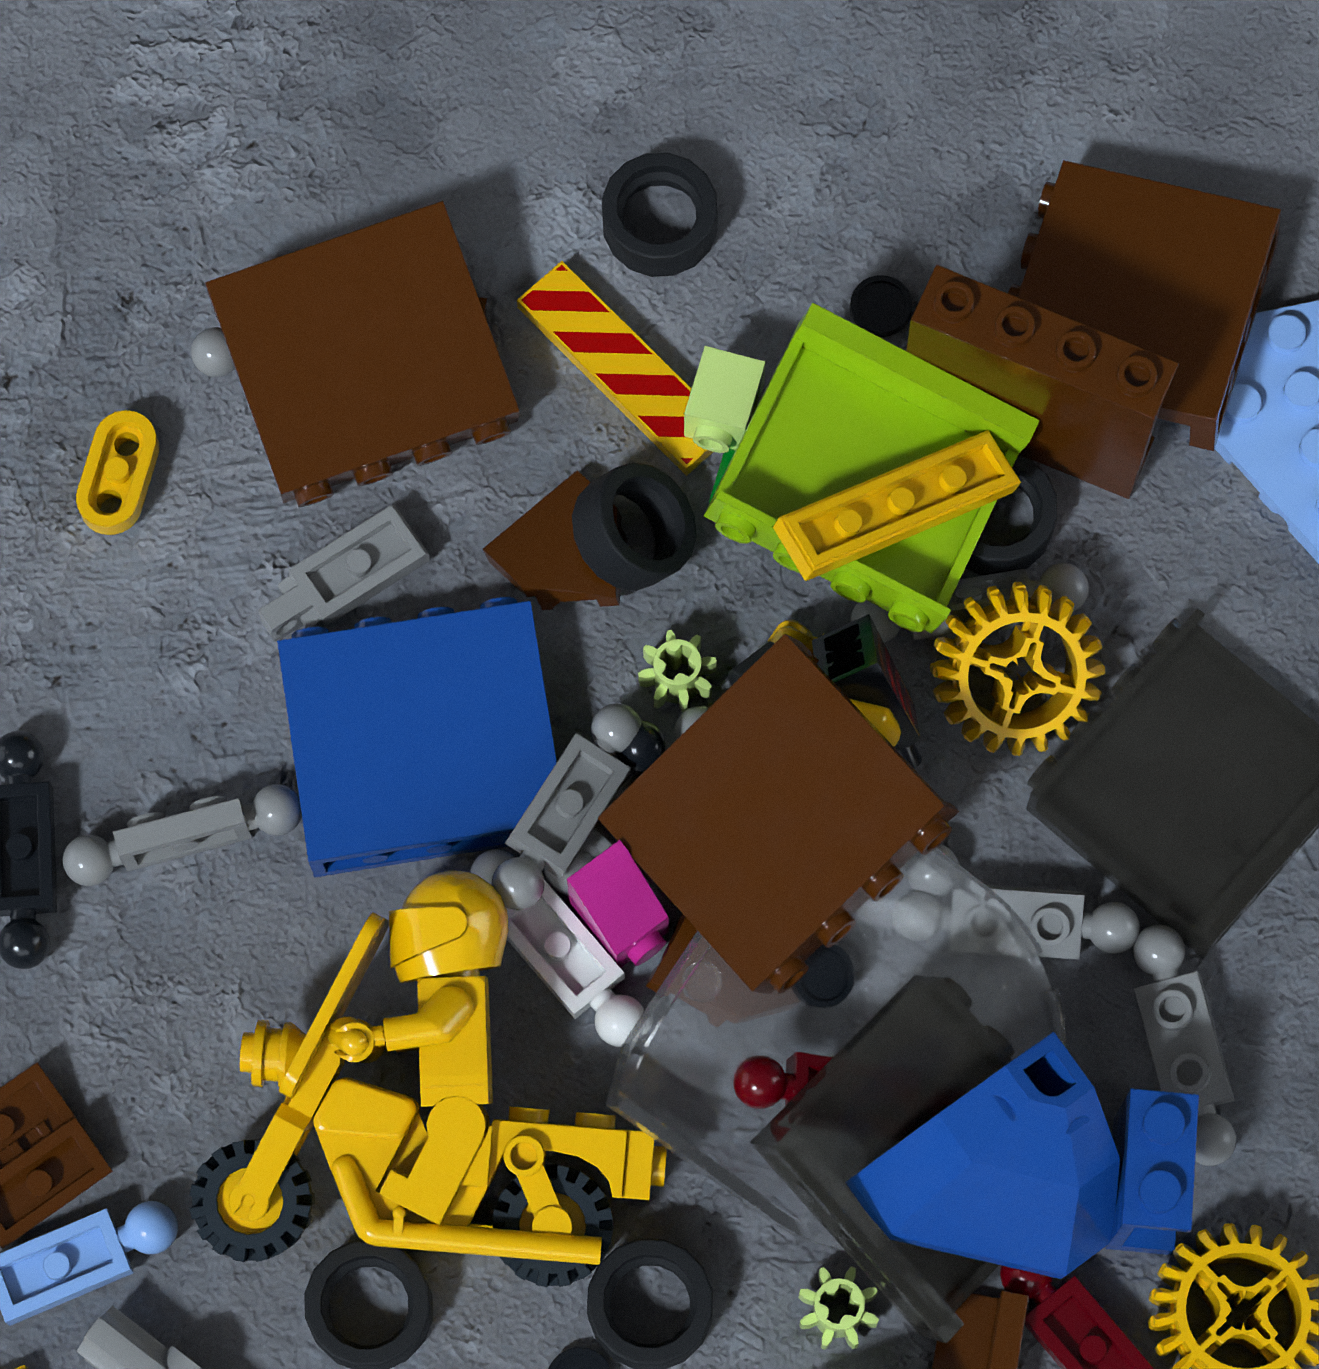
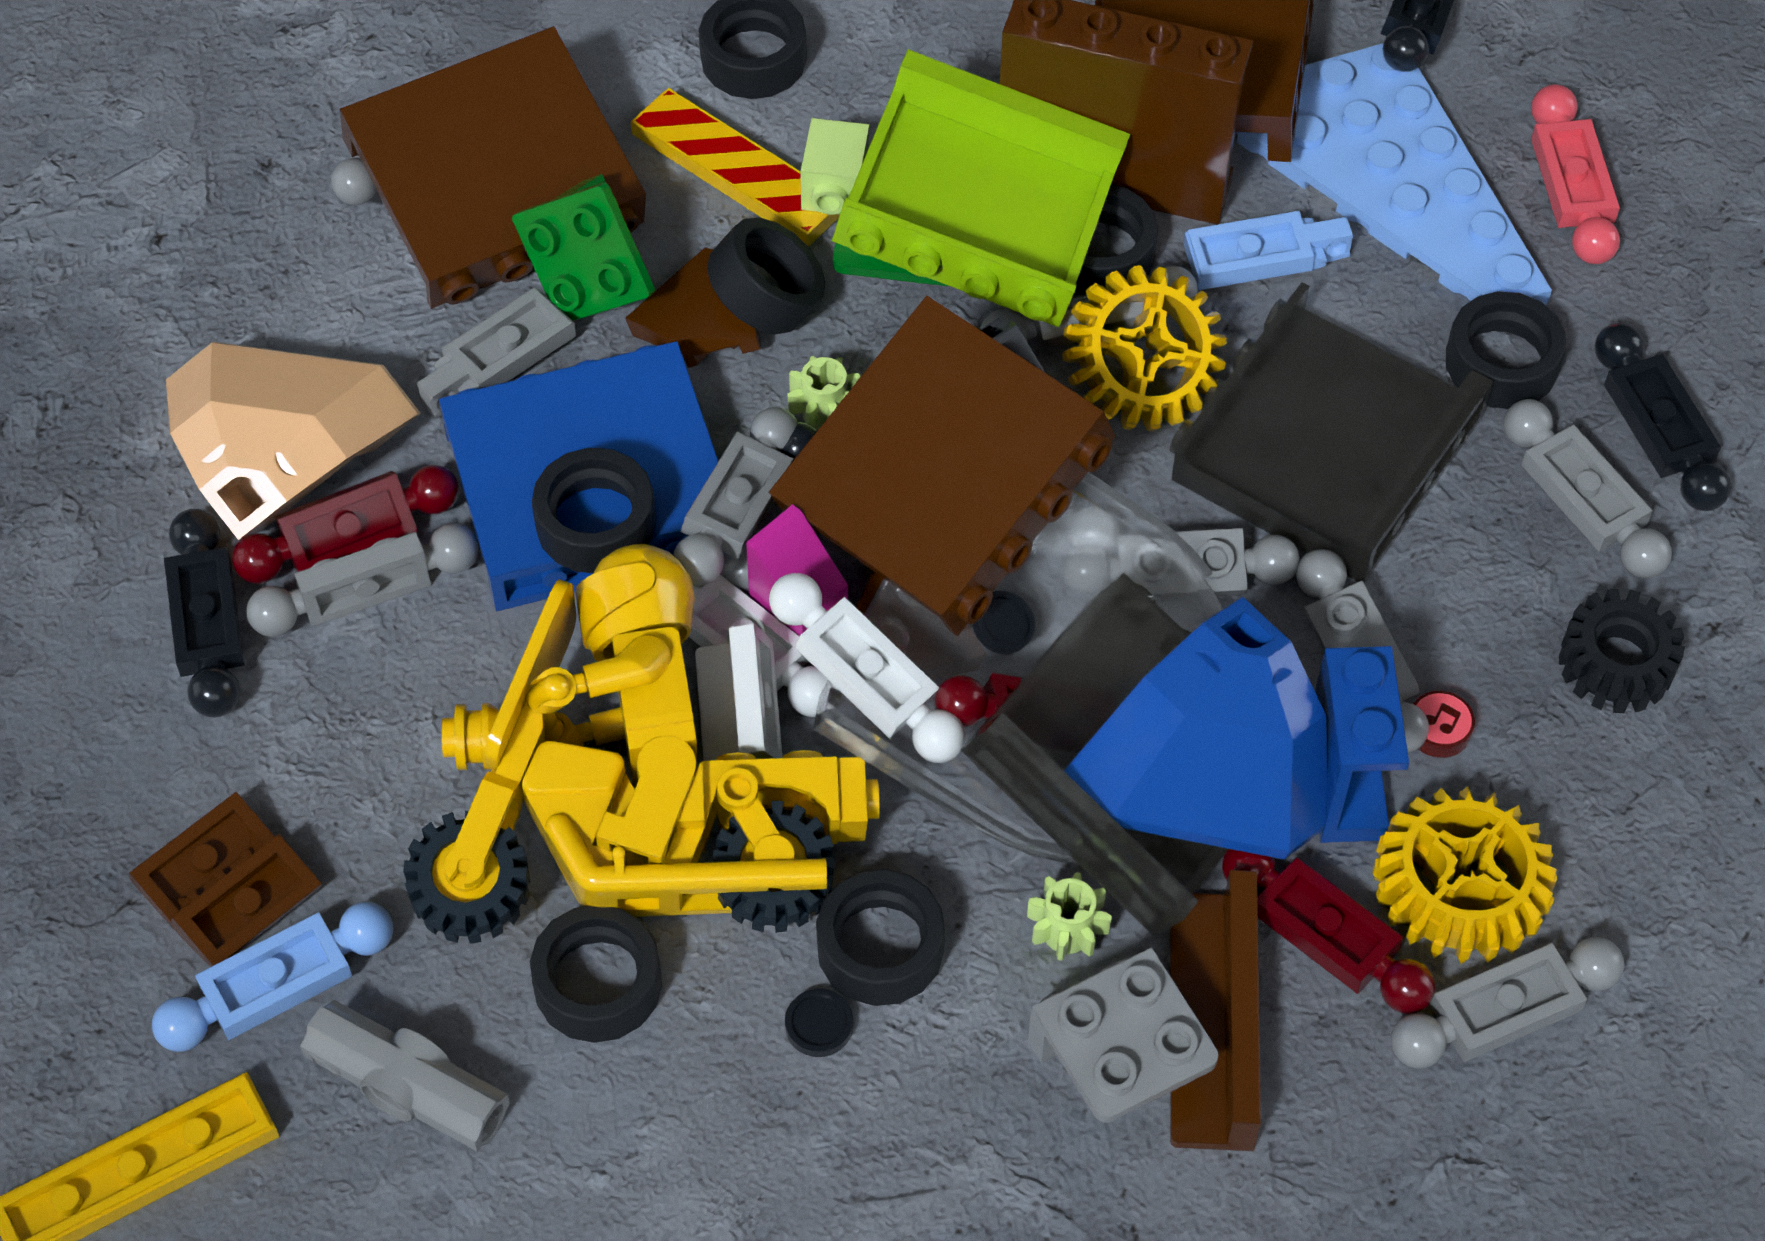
camera: 10 degrees left, 15 degrees down
(107, 649) = (276, 425): none -> light nougat brick
(115, 475) = (269, 298): yellow plate -> none
(171, 766) = (345, 522): none -> dark red plate
(410, 758) = (583, 471): none -> black tyre
(449, 477) = (584, 250): none -> green bracket
(543, 1031) = (739, 695): none -> white panel
(669, 1038) = (867, 667): none -> white plate
(896, 505) = (1010, 206): yellow tile -> none
(1168, 545) = (1264, 248): none -> light blue hinge
(1258, 1136) = (1449, 723): none -> tile

